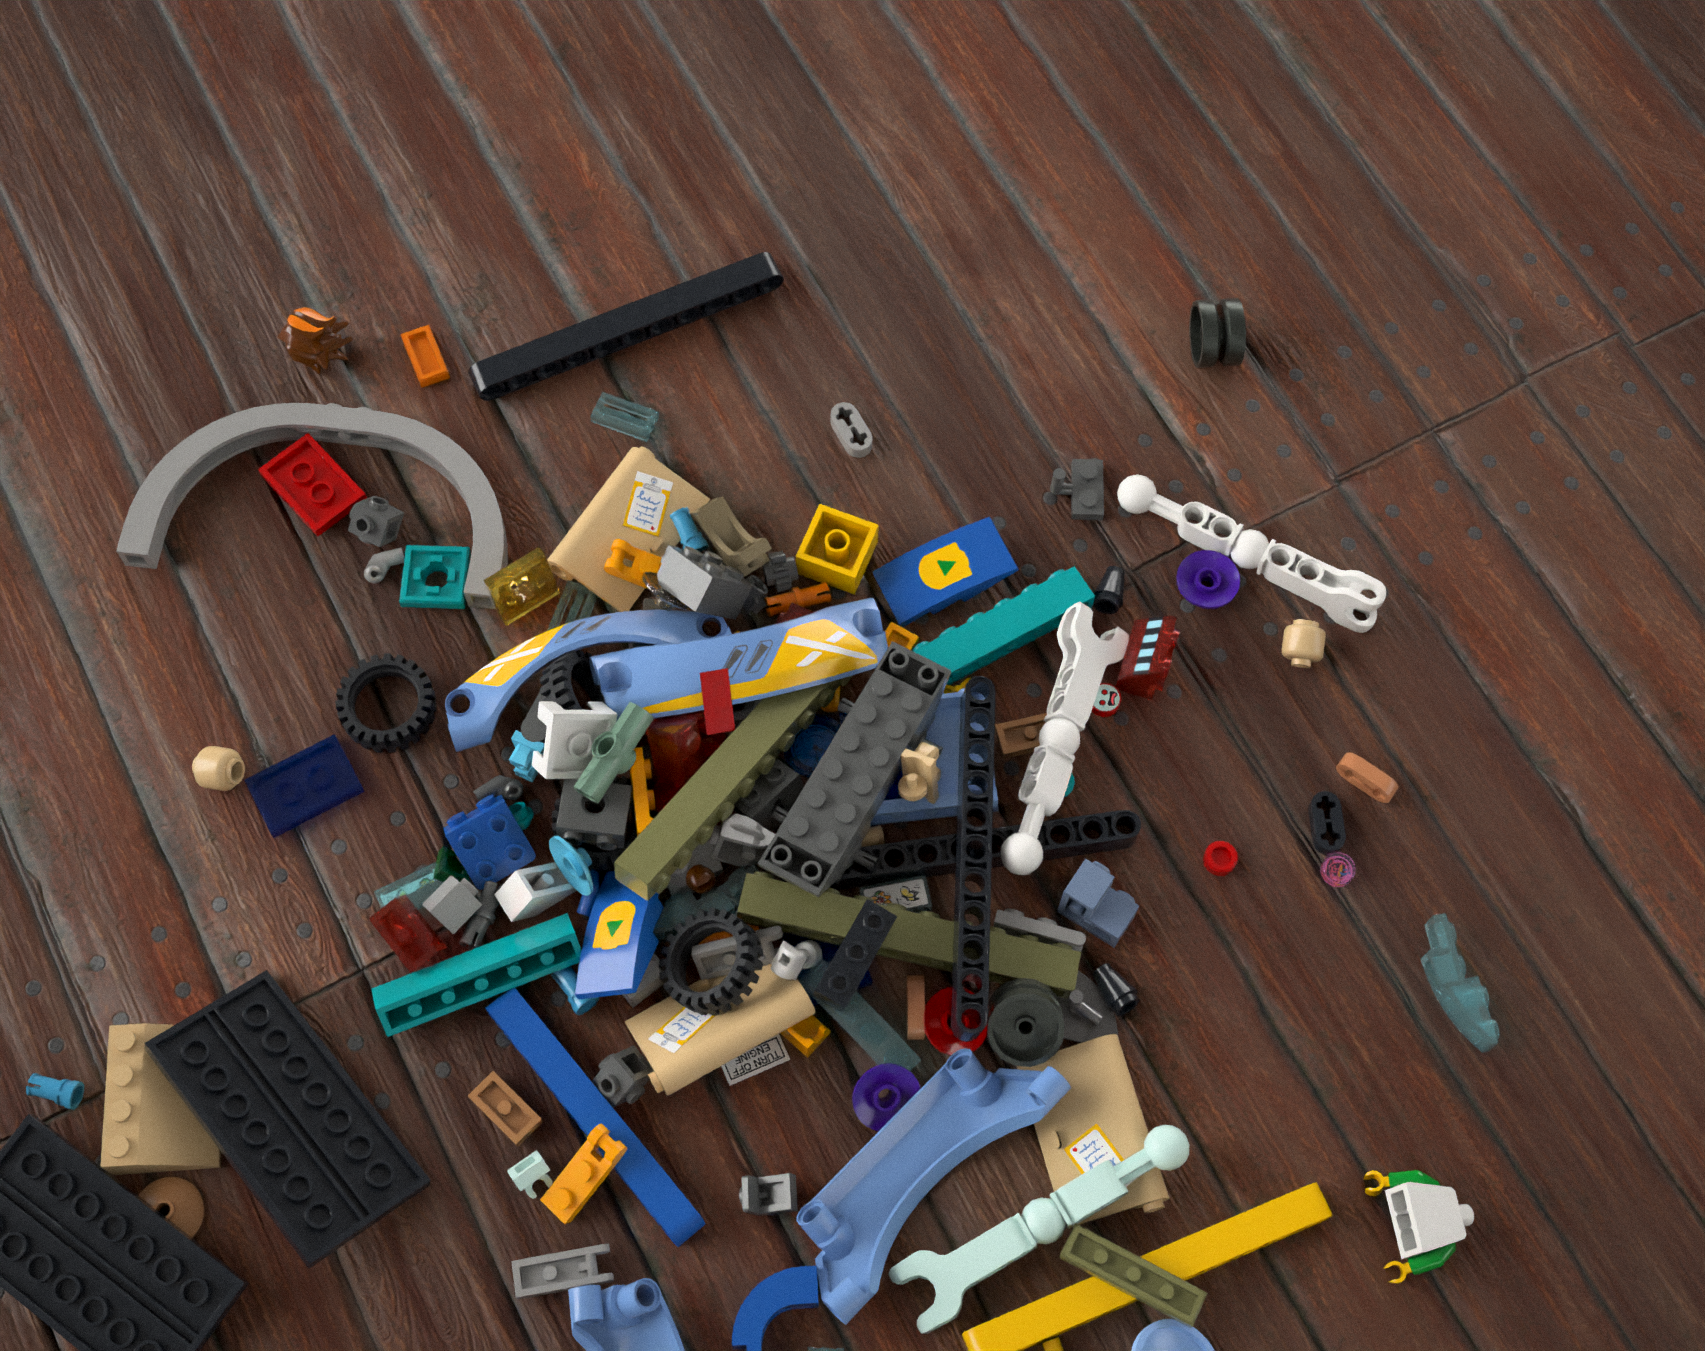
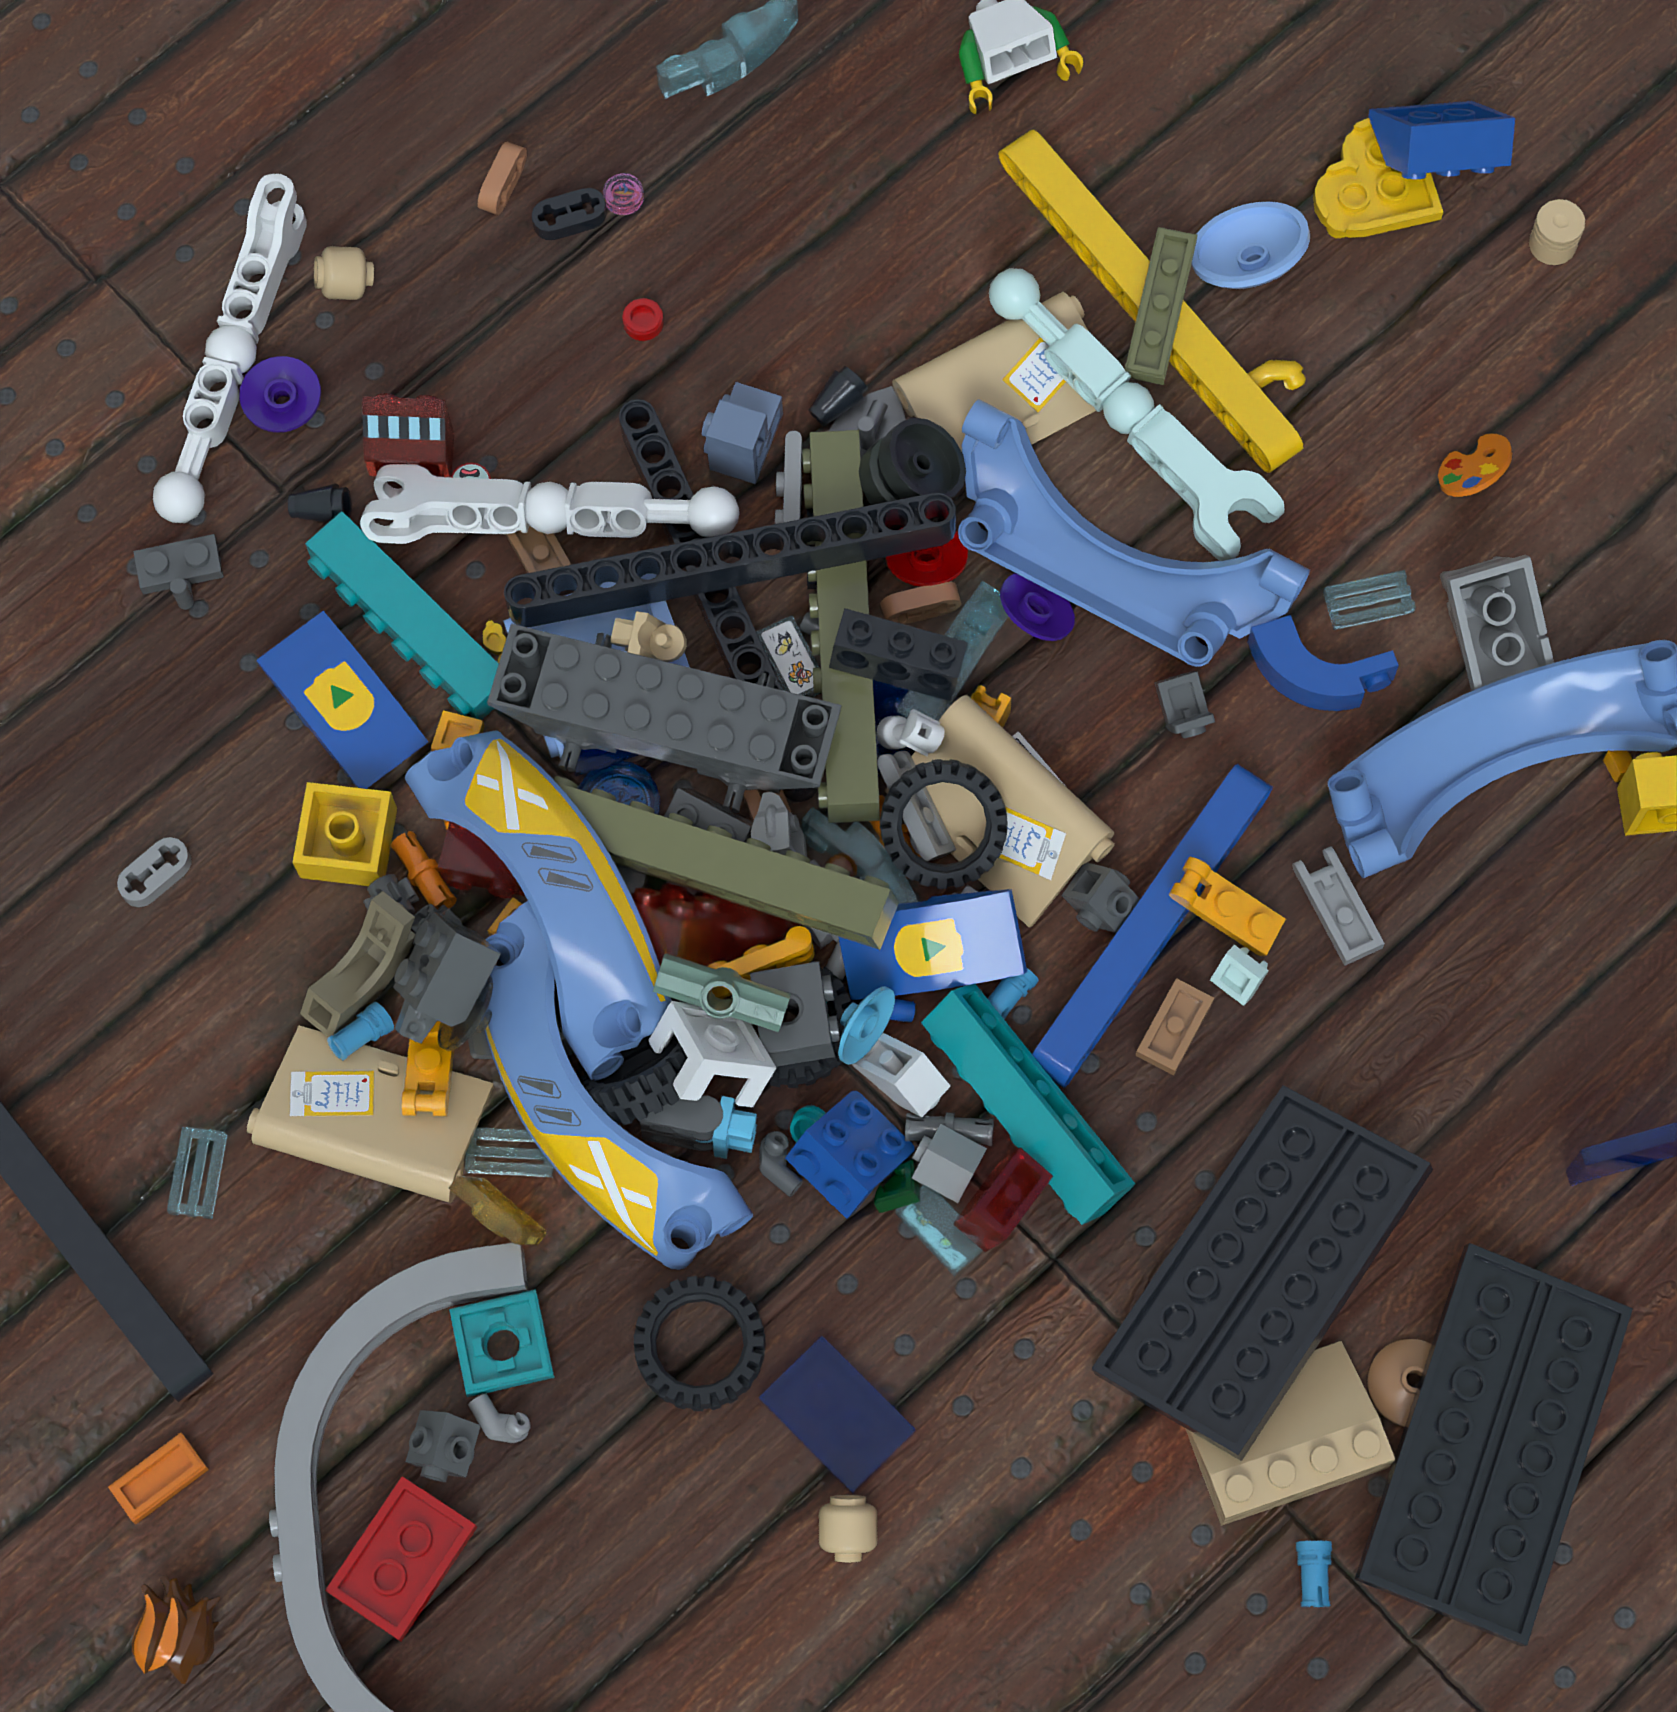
camera: 100 degrees left, 5 degrees up
(717, 701) = (622, 886): red sticker -> none

